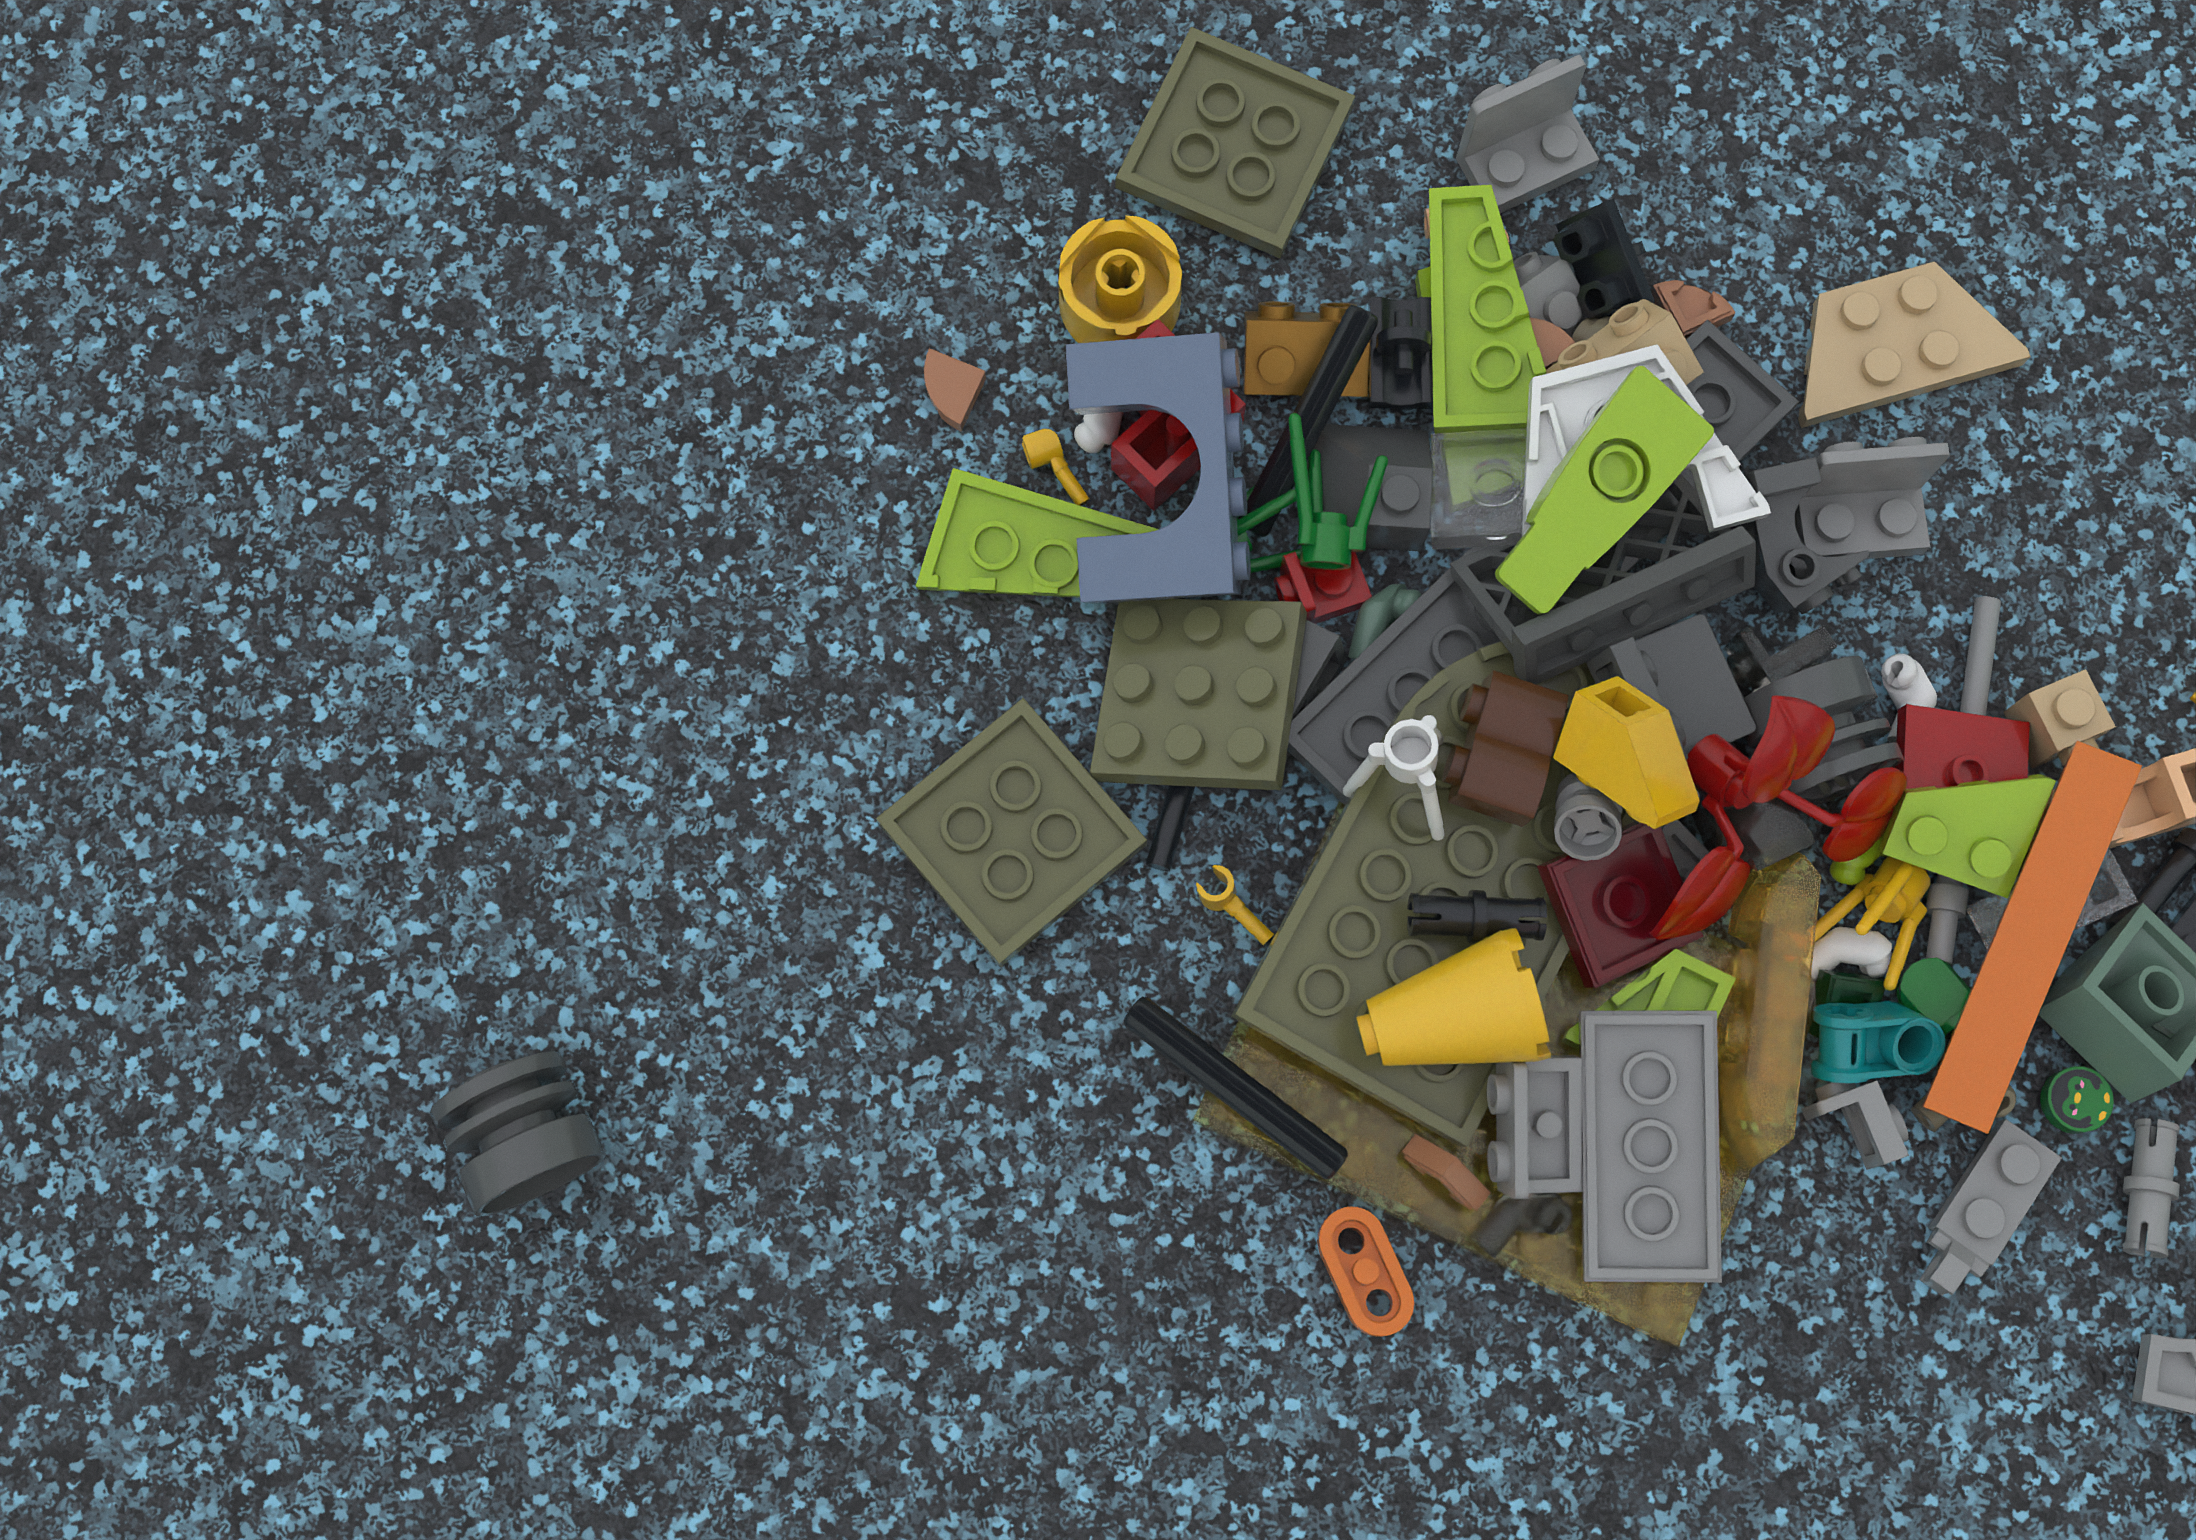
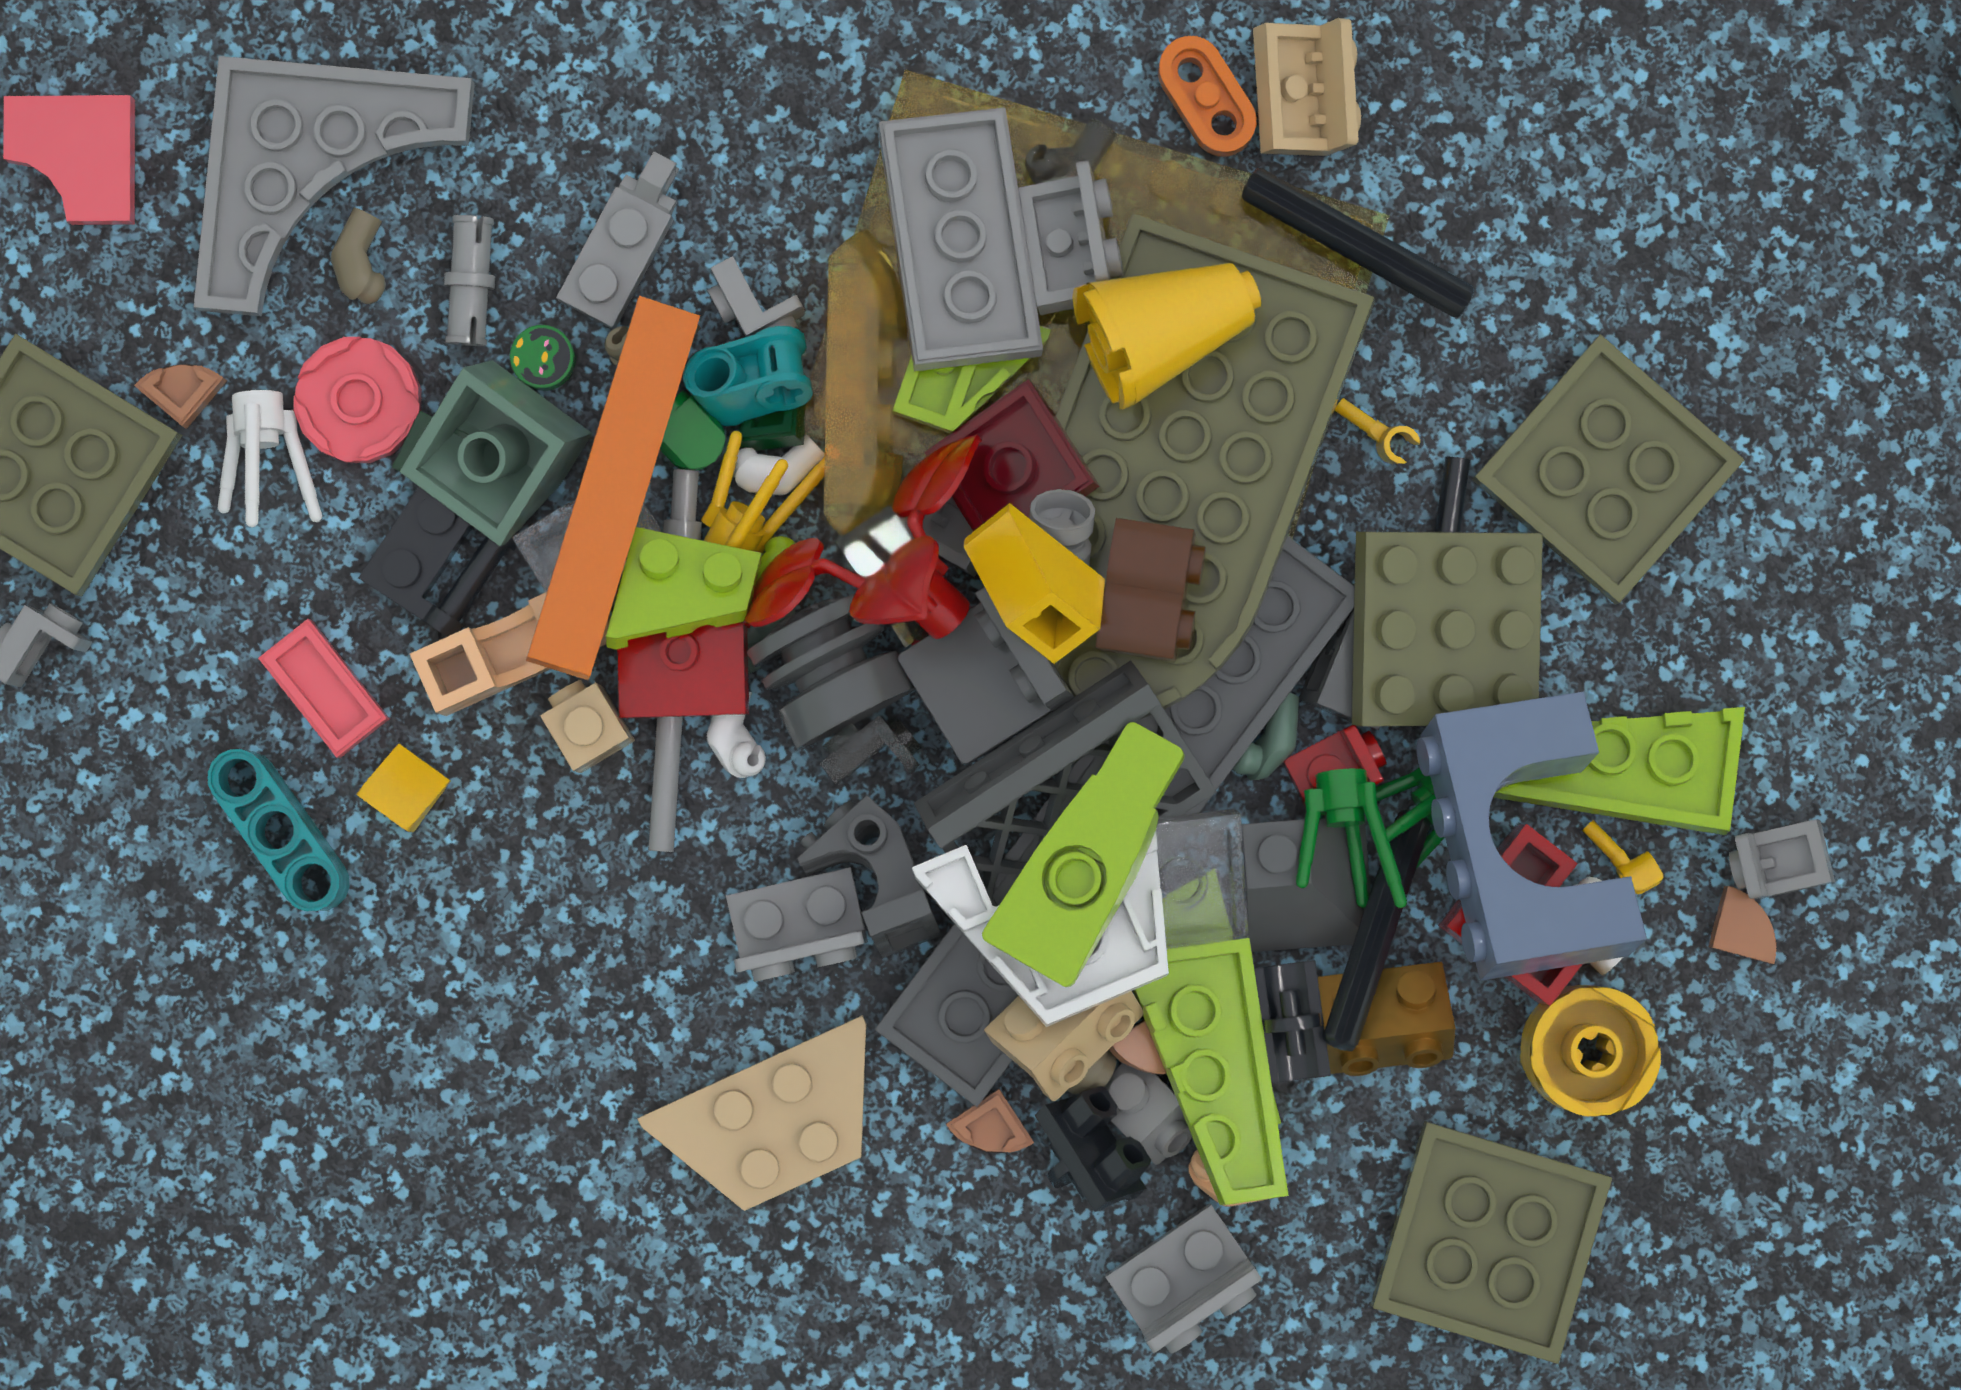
camera: 170 degrees right, 10 degrees up
(907, 437) = (1781, 860): none -> light grey bracket
(1262, 1263) = (1306, 88): none -> tan bracket
(1411, 758) = (1246, 548): white plant -> none
(1448, 1170) = (1148, 189): nougat tile -> none
(1475, 916) = (1155, 423): black pin -> none

